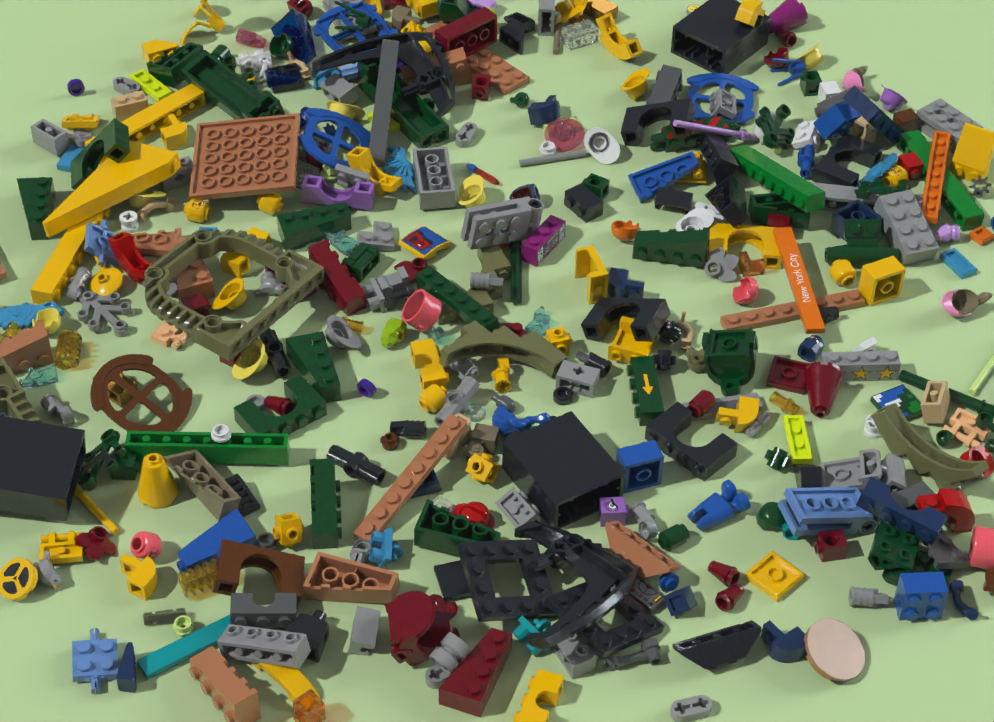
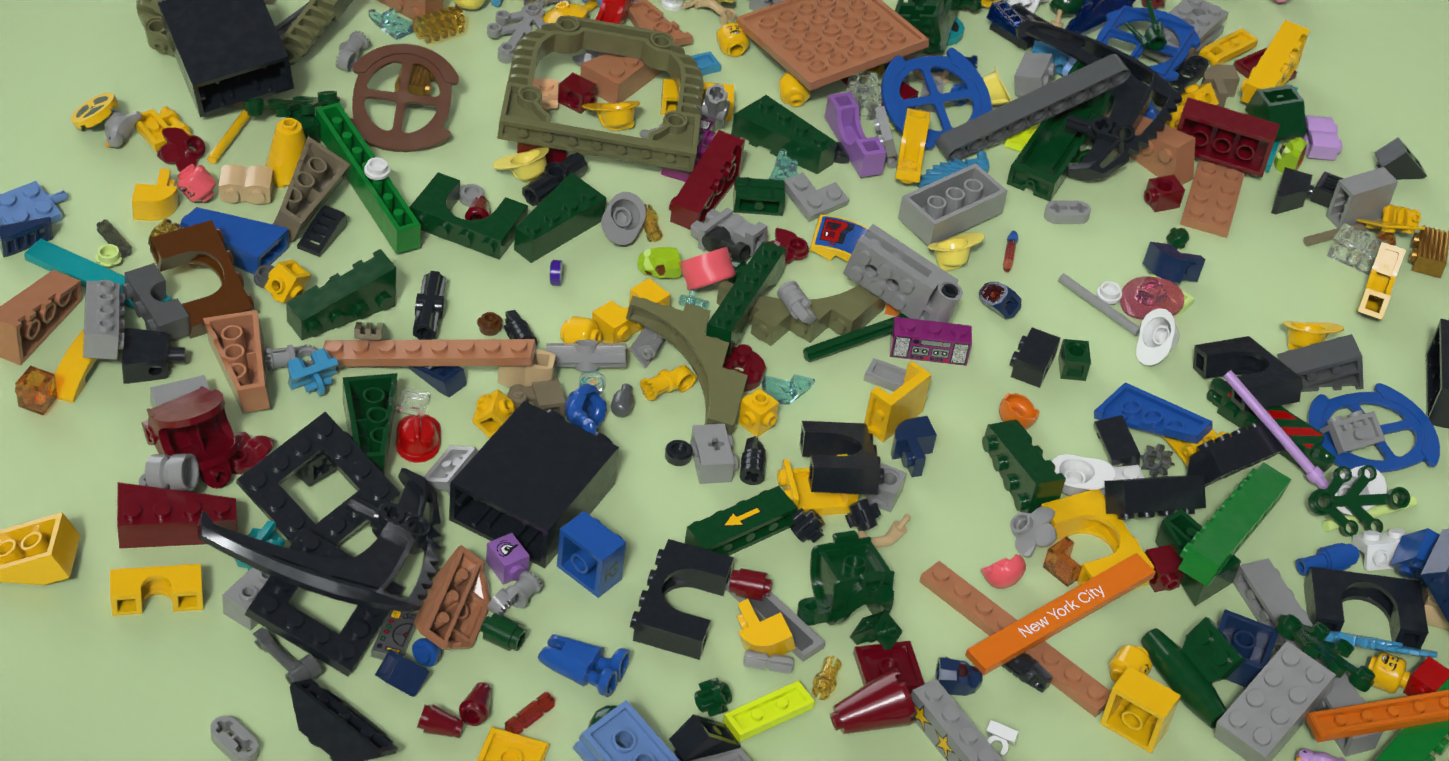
camera: 55 degrees right, 0 degrees up
(163, 518) = (246, 184): none -> tan brick
(281, 235) = (715, 105): none -> light grey piece
(365, 503) = (370, 333): none -> dark tan tile
(557, 272) = (885, 375): none -> light grey tile
(702, 191) = (1149, 460): none -> dark grey gear
(742, 551) = (530, 713): none -> clear red axle
(764, 363) = (879, 628): none -> dark green bracket

